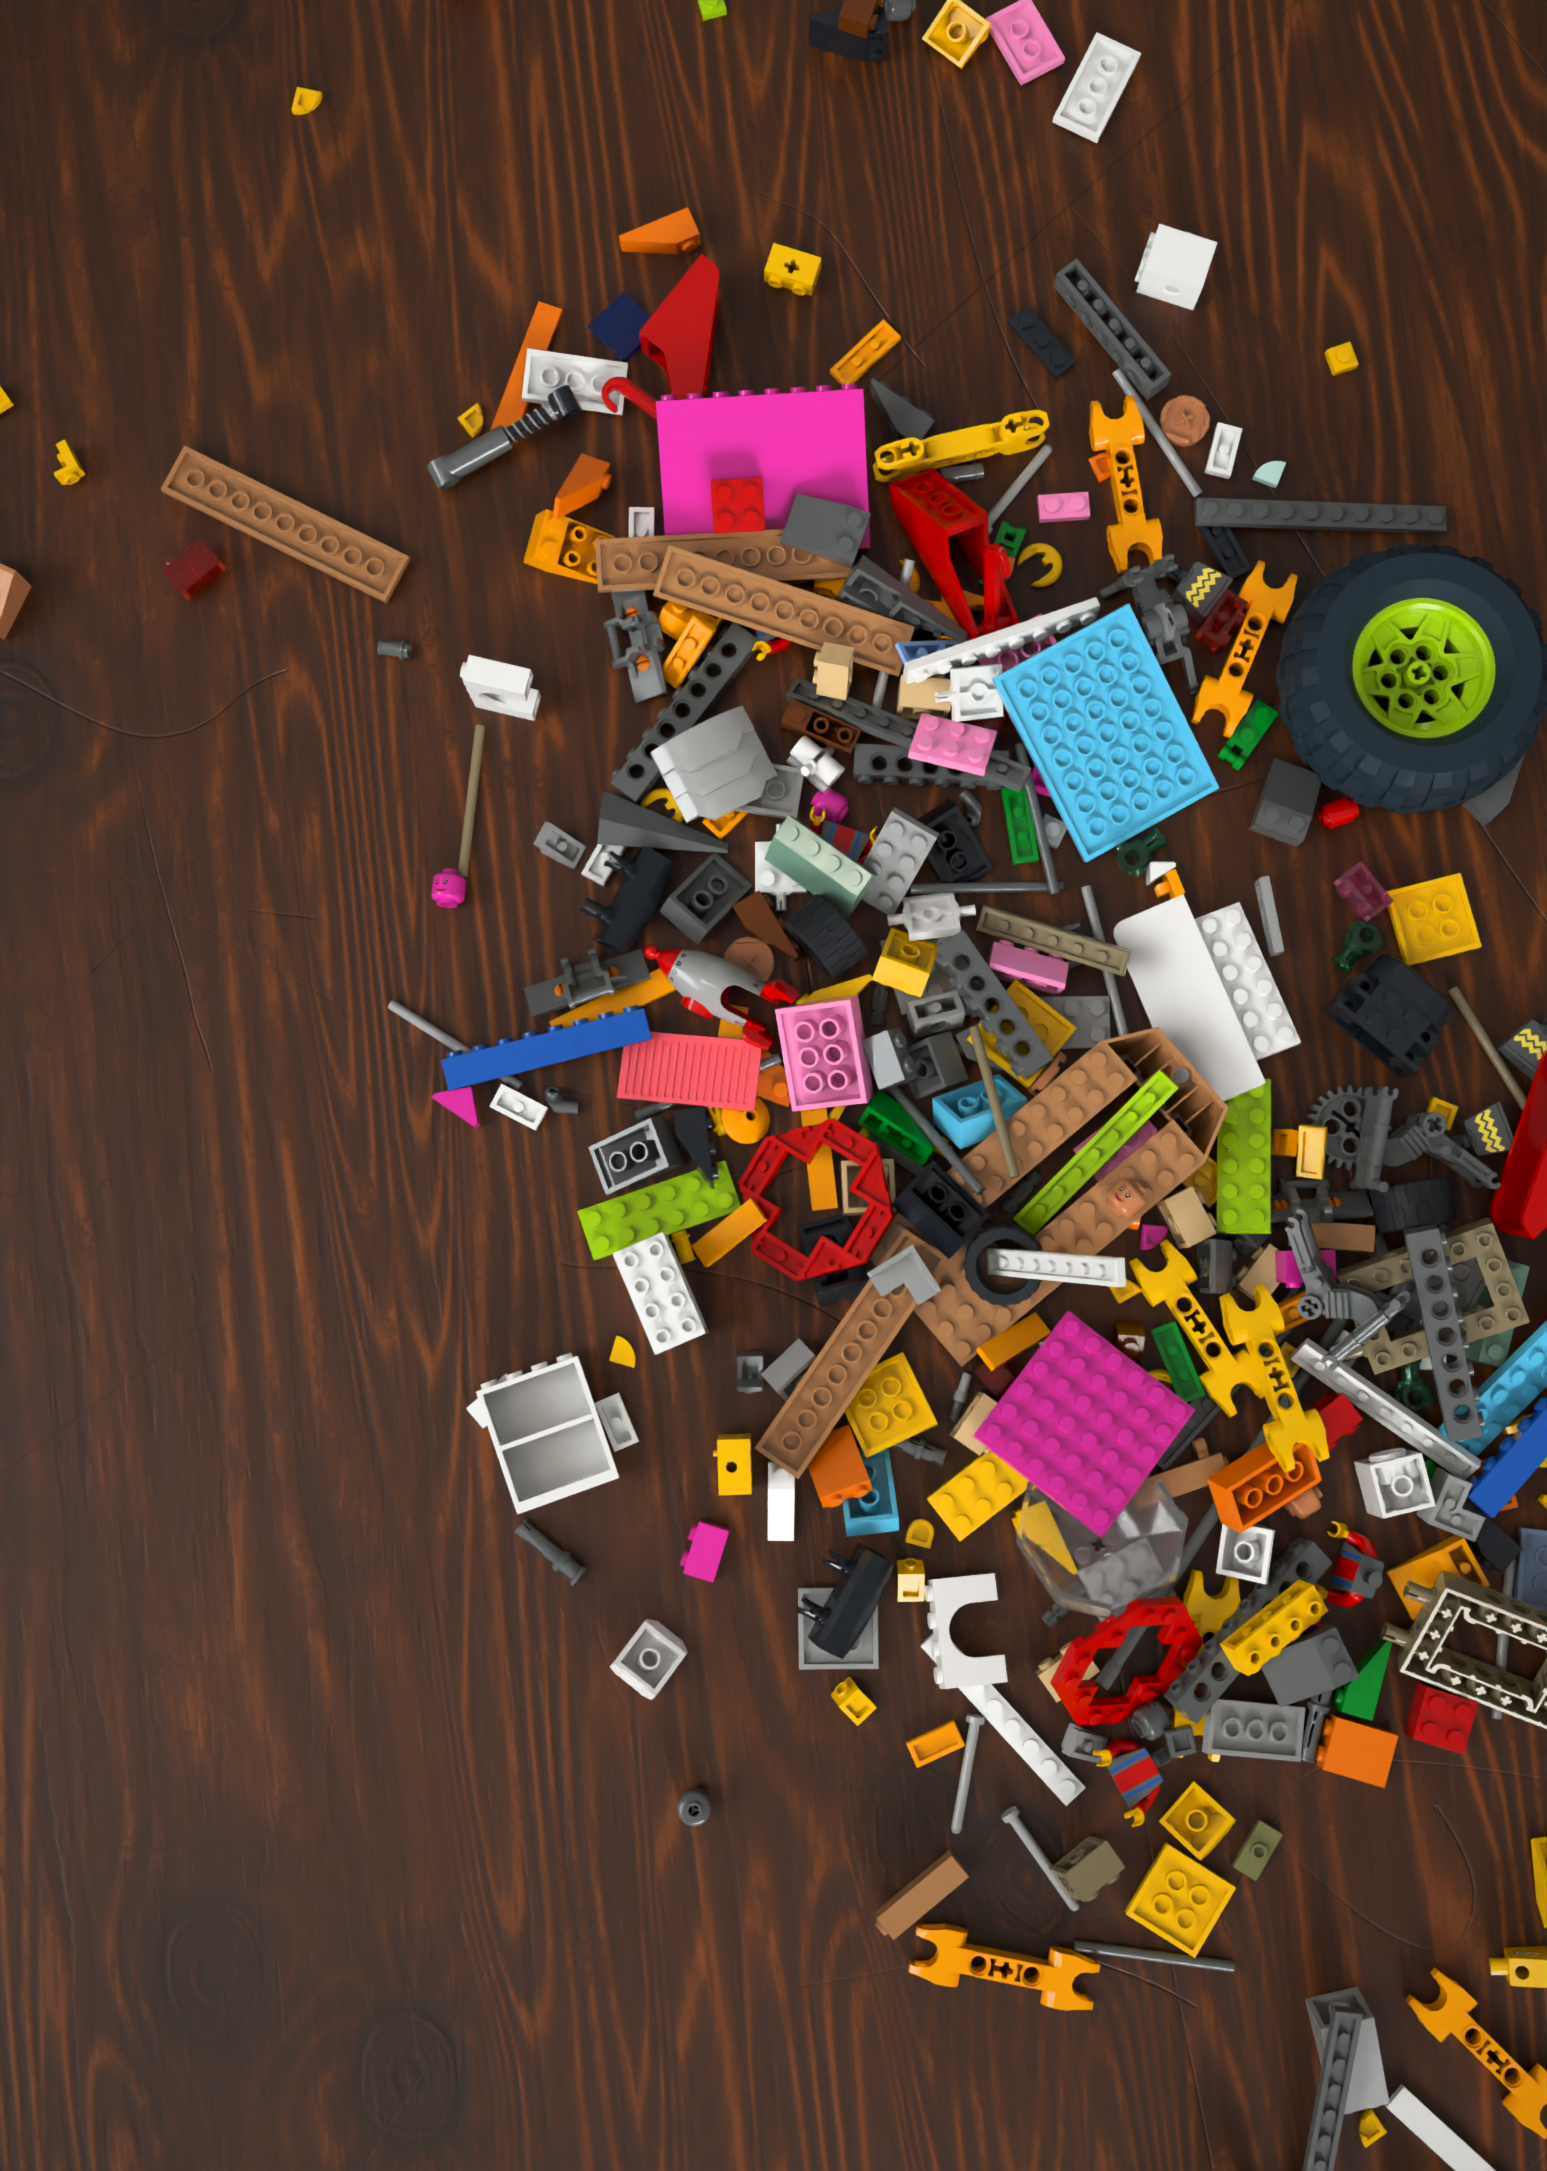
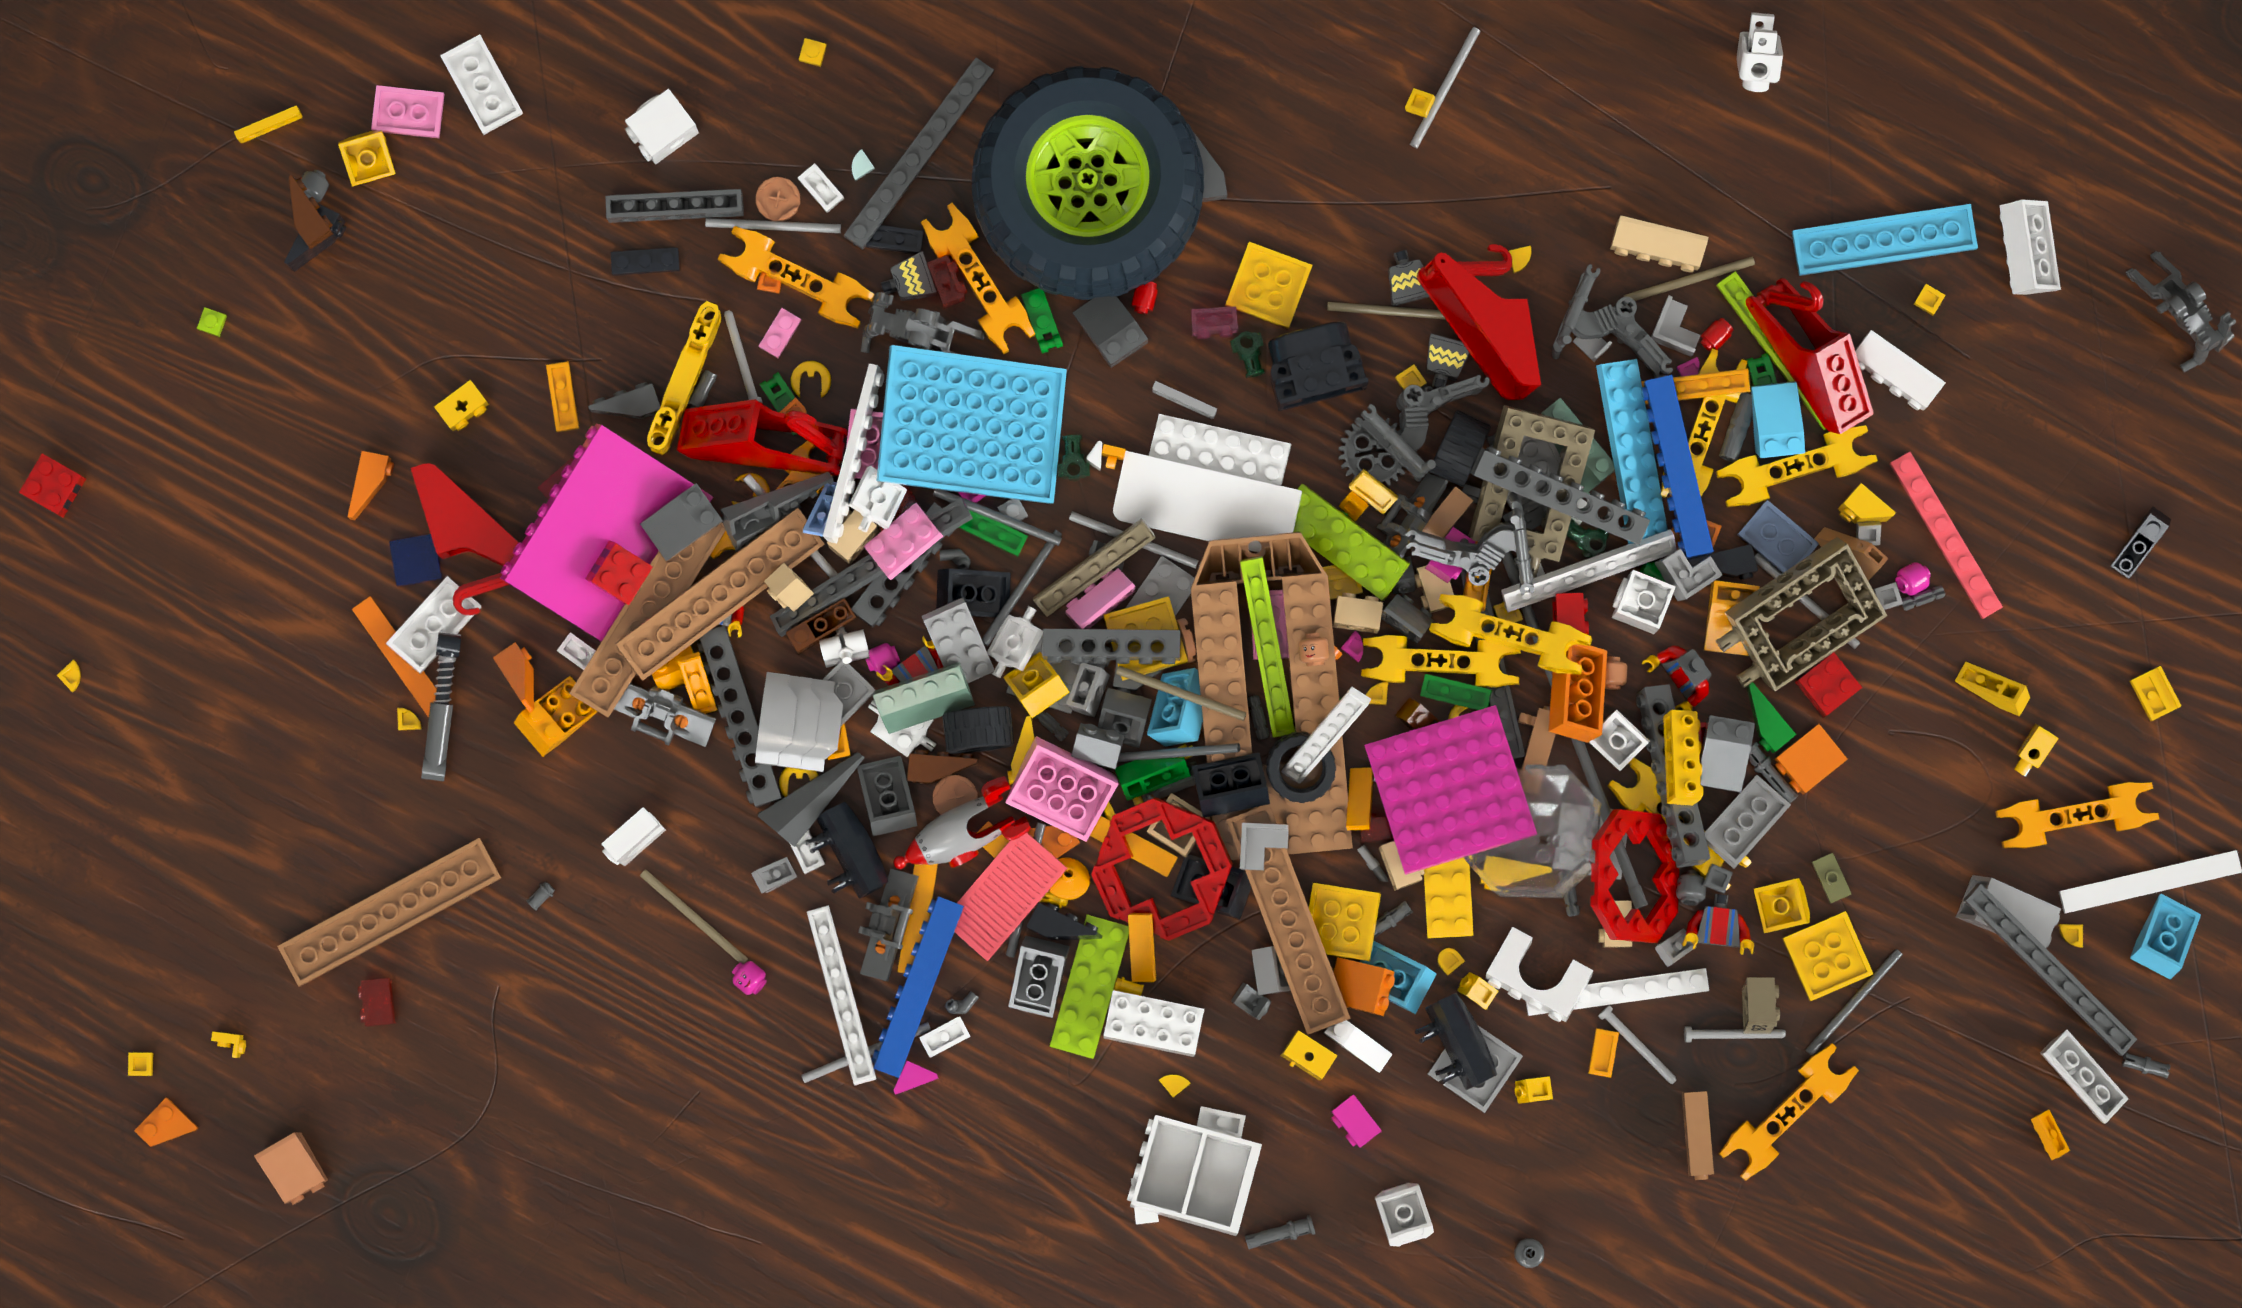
camera: 55 degrees left, 0 degrees up
(489, 984) = (841, 995): none -> white tile

